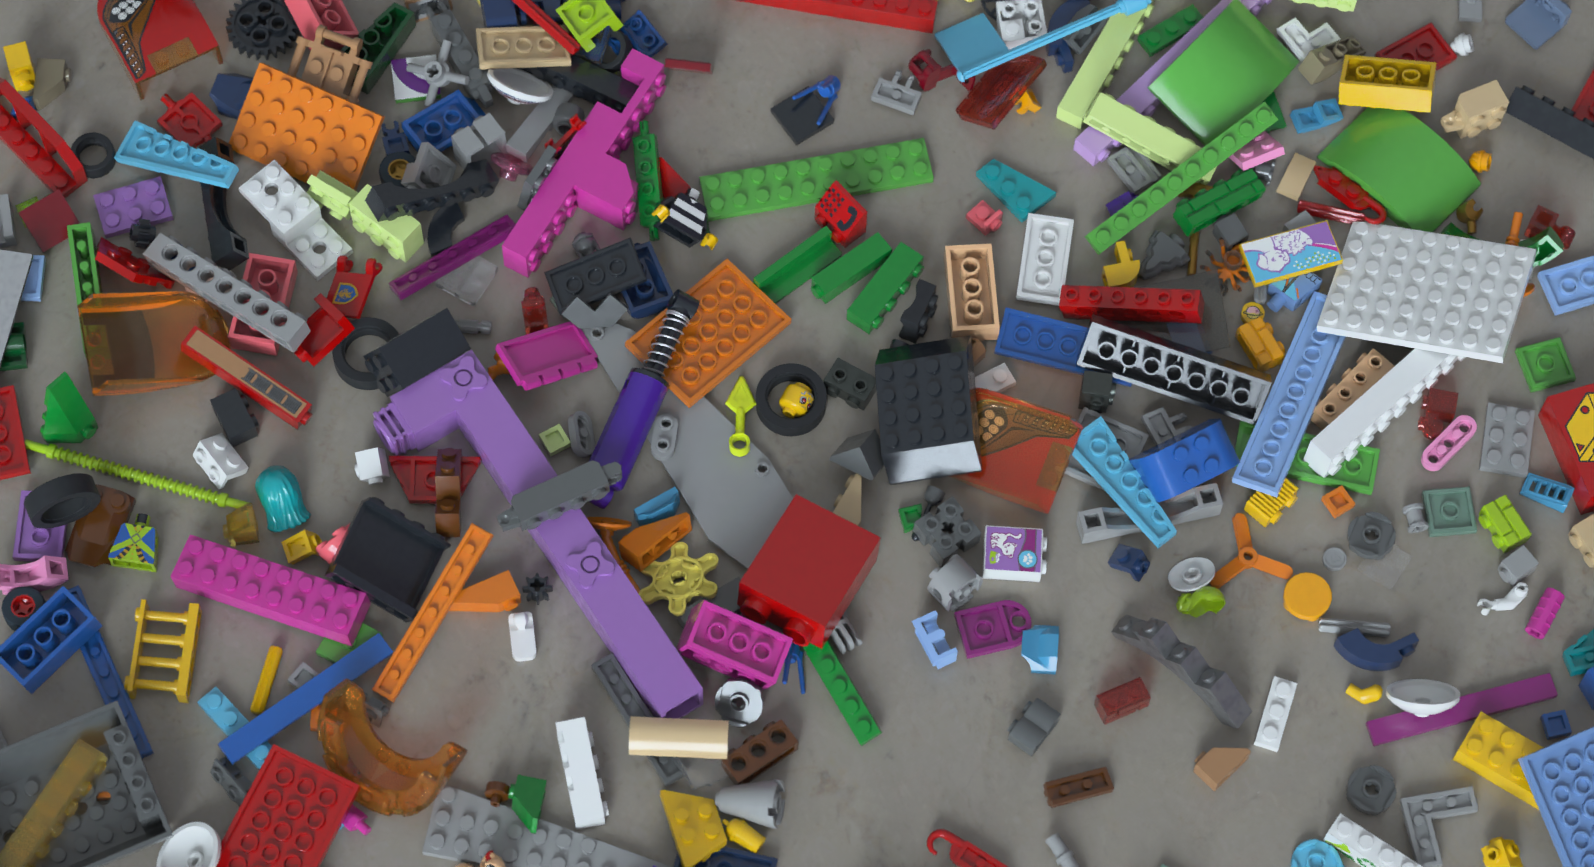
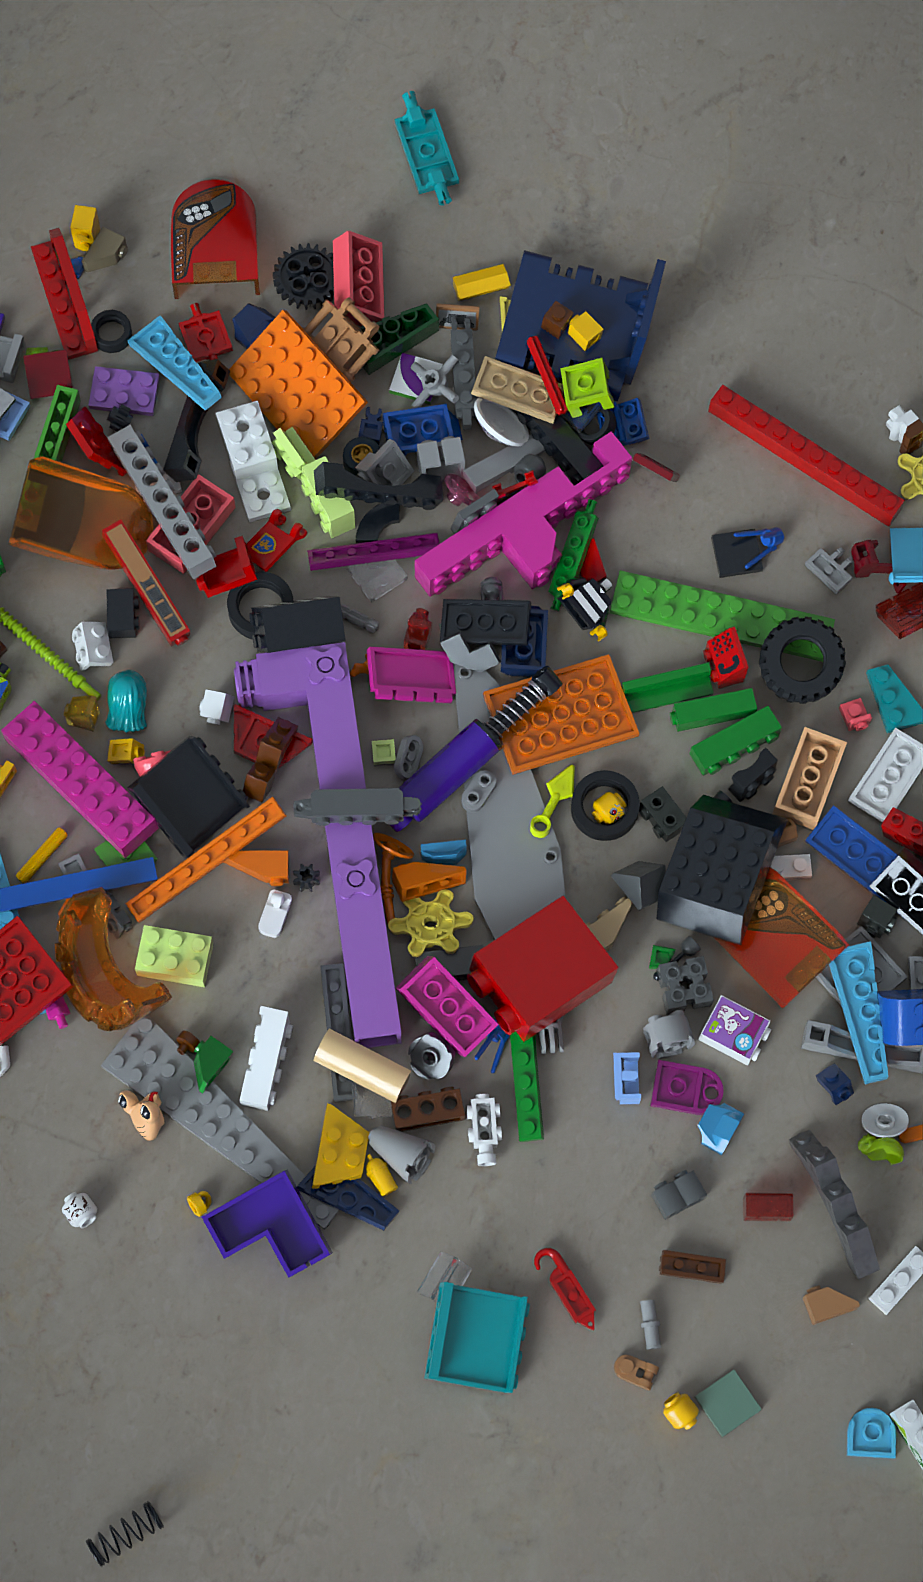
camera: 25 degrees right, 5 degrees up
(444, 717) = (174, 956): none -> yellowish green brick
(822, 743) = (484, 1125): none -> white brick
(930, 161) = (809, 630): none -> black tyre

